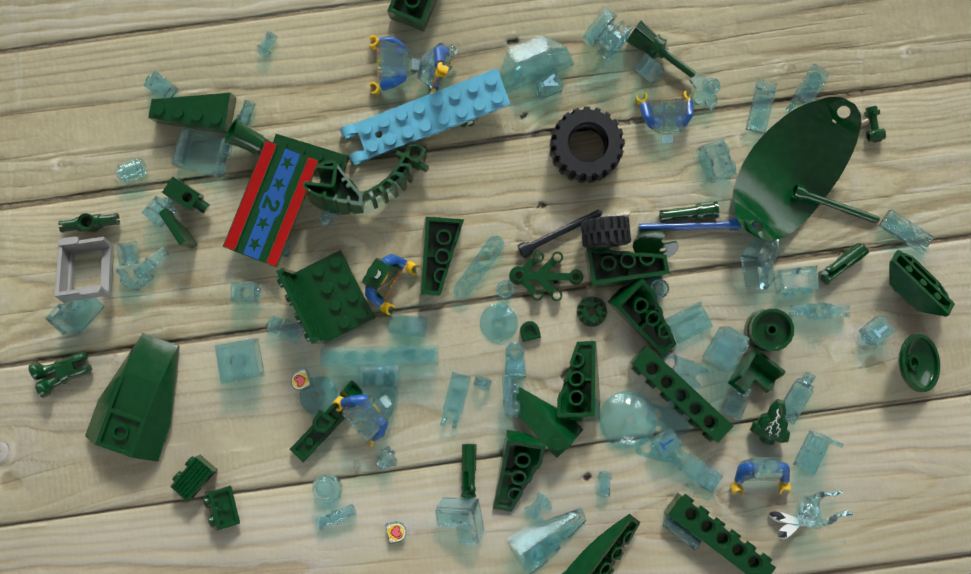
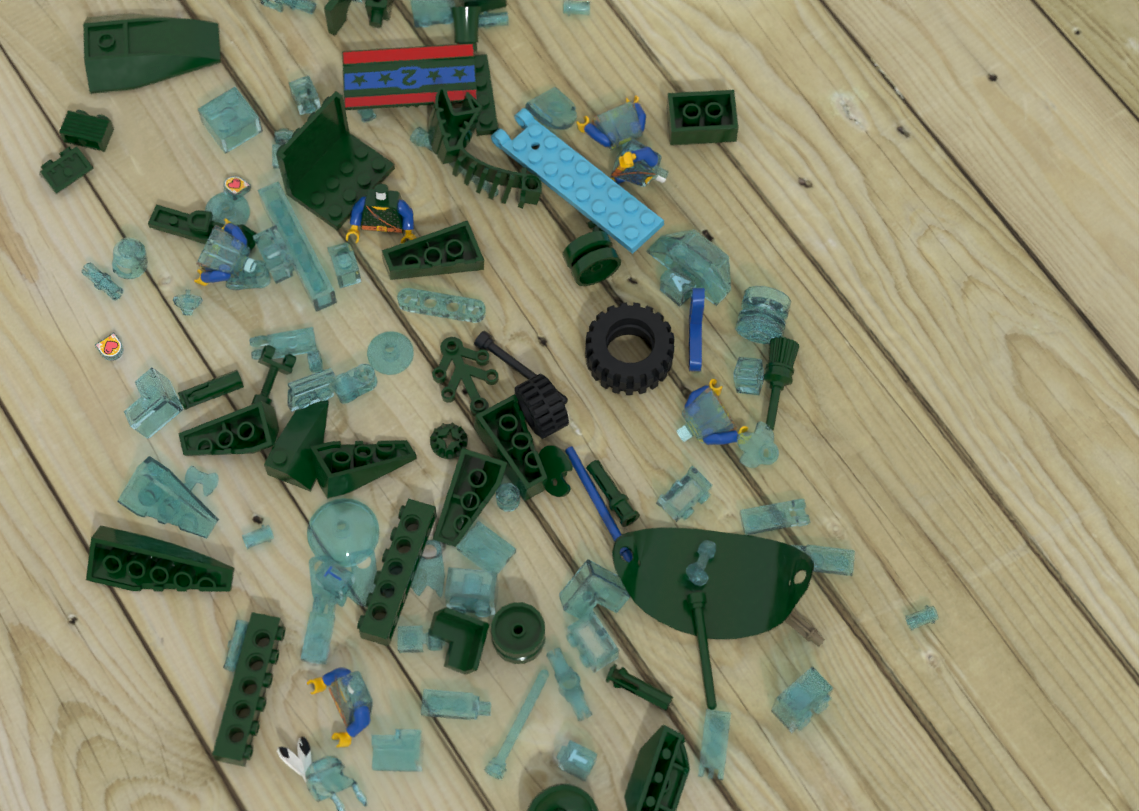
camera: 65 degrees right, 20 degrees down
(352, 105) = (553, 109): none -> clear light blue tile
(463, 417) = (285, 368): none -> dark green bar
(500, 137) = (591, 258): none -> dark green wheel
(508, 294) = (429, 332): clear light blue bush -> none
(529, 331) = (395, 387): dark green tile -> none
(583, 83) = (695, 328): none -> blue beam
(772, 424) = (408, 686): dark green rock -> none
(780, 182) = (696, 570): none -> clear light blue bar
(853, 387) = (496, 767): none -> clear light blue piece
(875, 134) = (812, 658): dark green bar -> none
(882, 42) = (922, 617): none -> clear light blue pin
(910, 155) = (802, 699): none -> clear light blue brick

